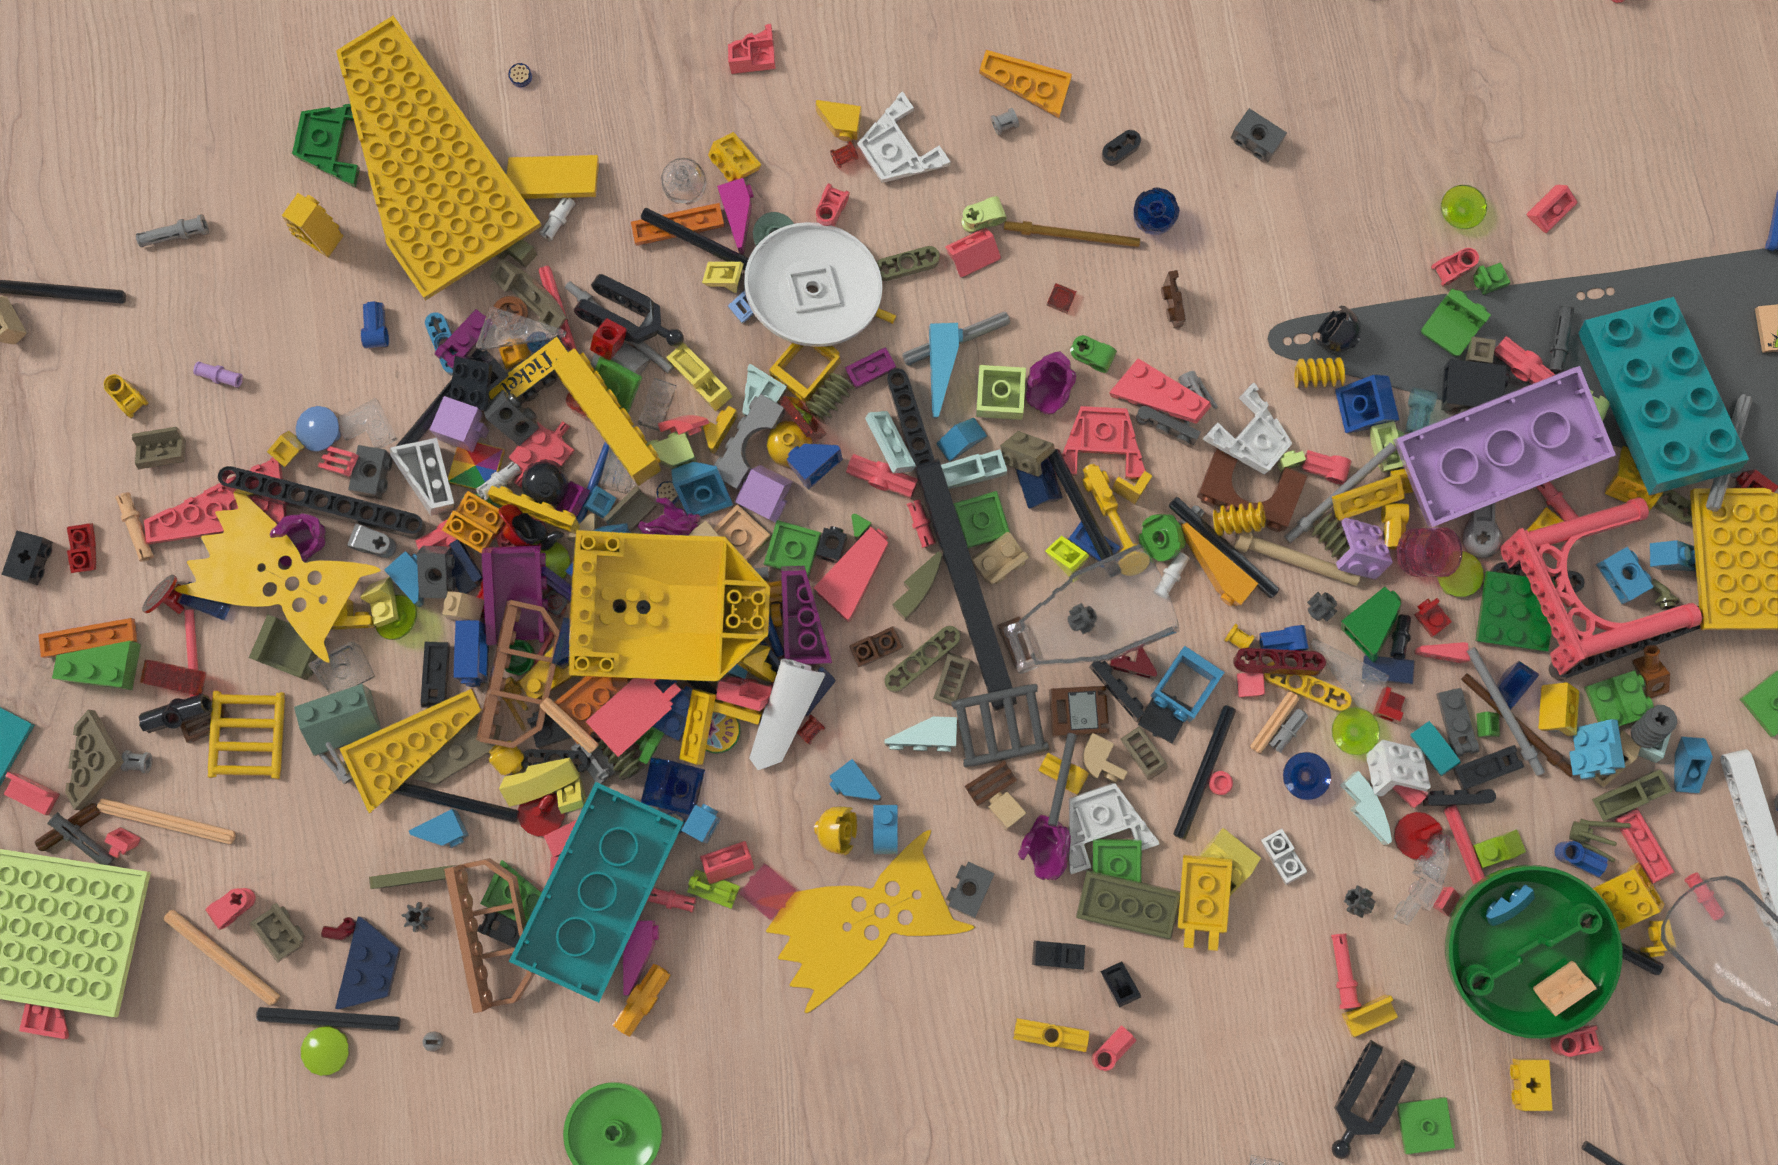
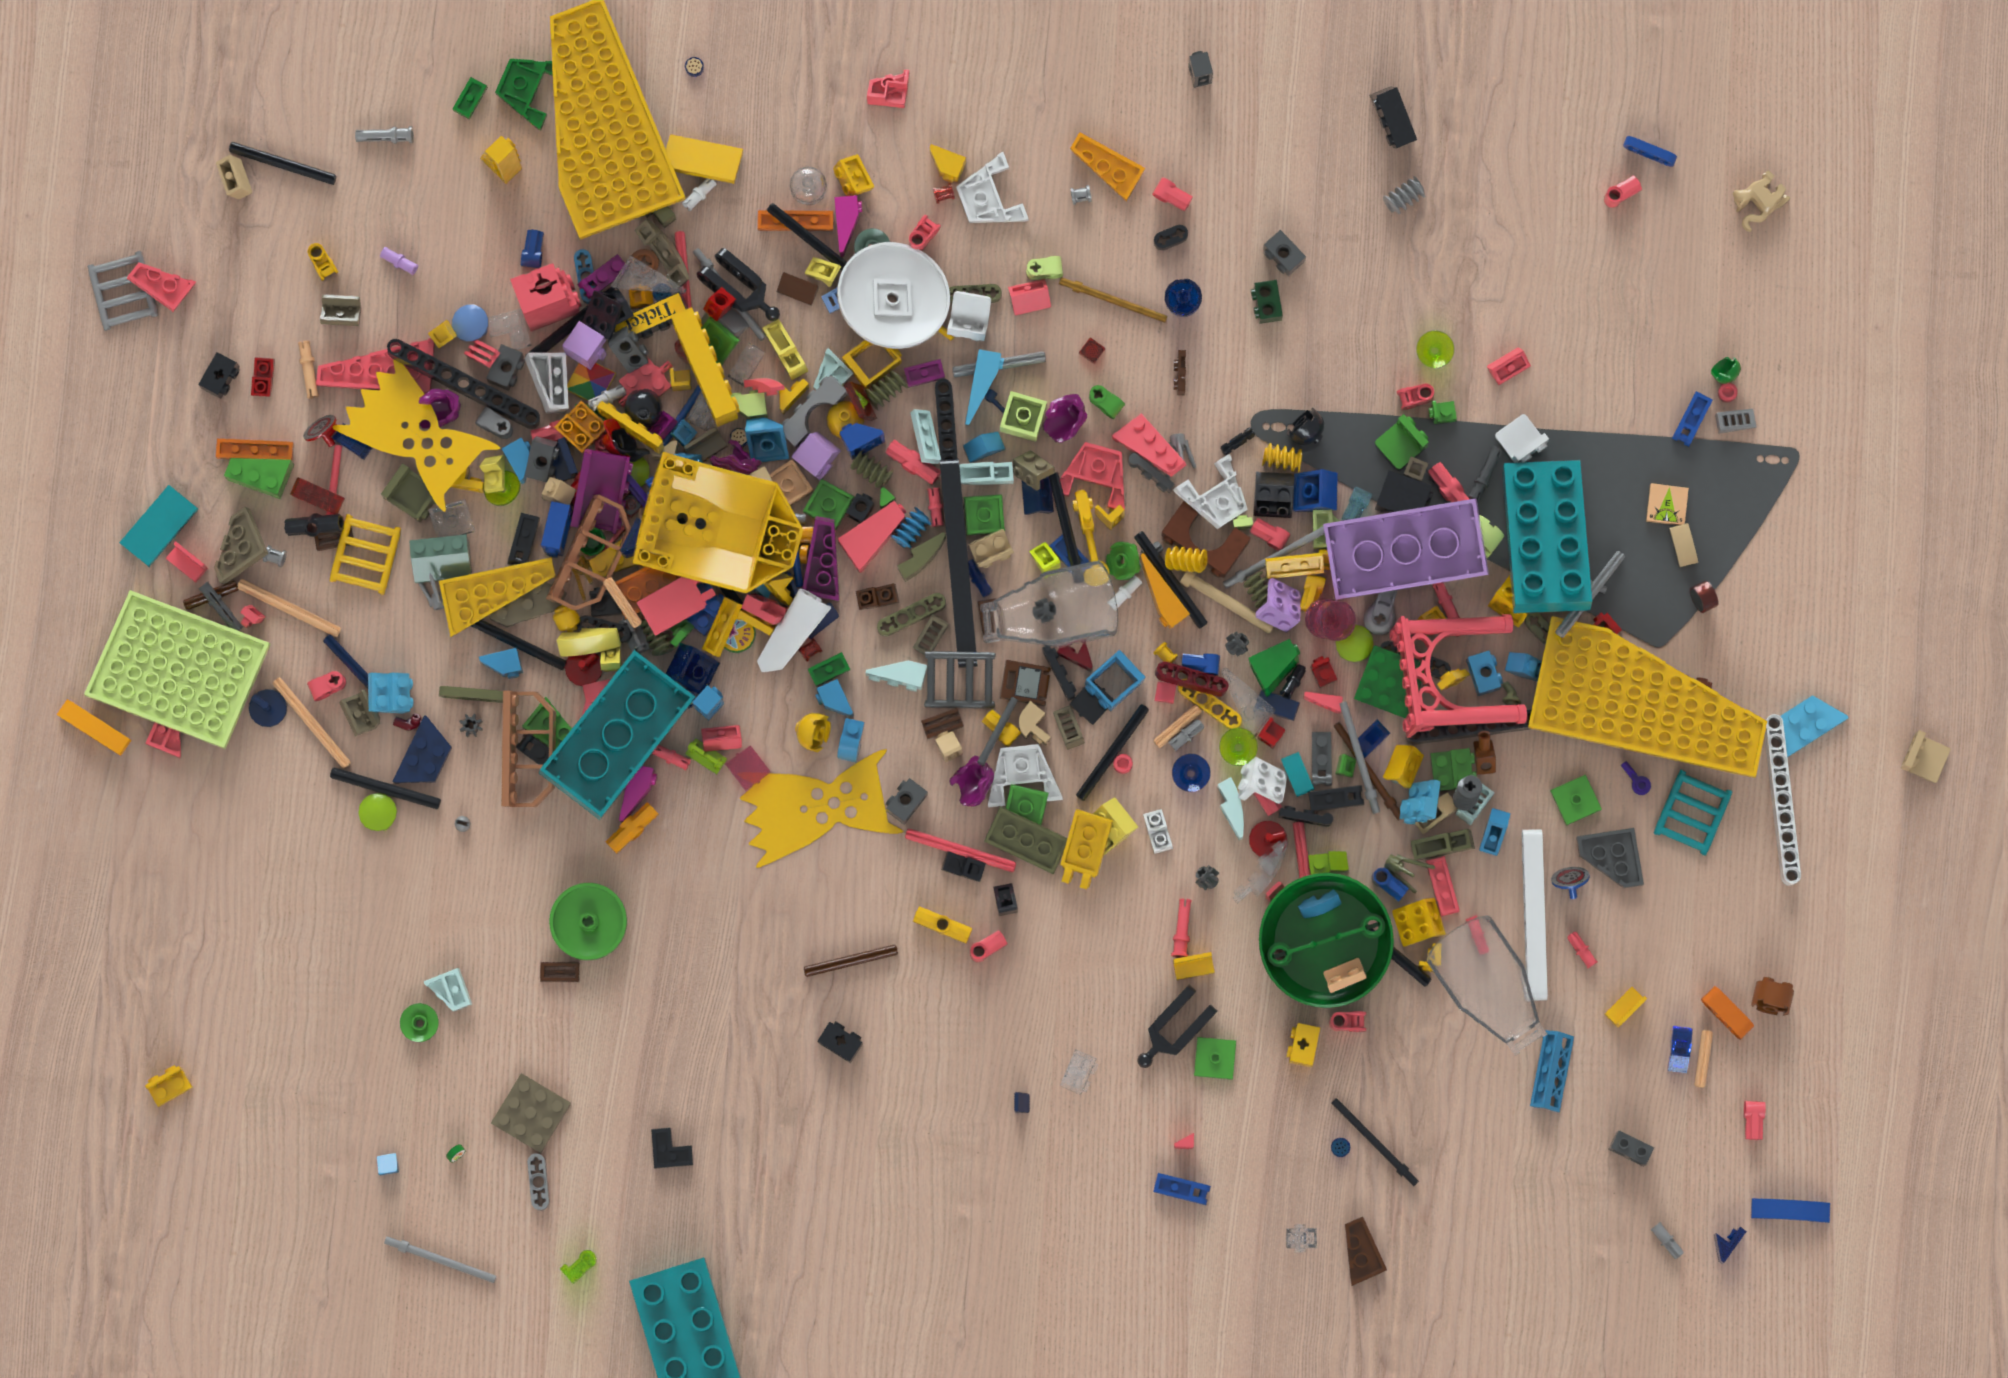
camera: 10 degrees right, 0 degrees up
(164, 950) = (267, 708): none -> dark blue shield
(256, 873) = (346, 658): none -> dark blue axle
(264, 167) = (470, 98): none -> green plate
(308, 899) = (389, 692): none -> medium azure plate
(400, 387) = (547, 302): none -> coral piece
(582, 440) = (680, 380): none -> yellow panel
(698, 302) = (797, 288): none -> reddish brown slope
(834, 495) = (871, 469): none -> olive piece
(838, 748) = (828, 669): none -> green plate
(898, 556) = (911, 528): none -> dark azure piece
(908, 288) = (969, 316): none -> white bracket
(948, 1105) = (850, 960): none -> reddish brown axle
(955, 379) = (990, 397): none -> dark blue hand
(994, 599) = (979, 579): none -> clear blue pin
(1050, 935) = (961, 850): none -> coral axle
(1105, 96) = (1168, 192): none -> coral piece
(1259, 194) = (1271, 301): none -> dark green brick
(1259, 365) = (1237, 441): none -> black axle
(1319, 418) = (1273, 494): none -> black slope
(1381, 39) = (1404, 195): none -> light grey piece
(1594, 289) = (1521, 439): none -> white bracket
(1598, 590) = (1453, 678): none -> yellow plate

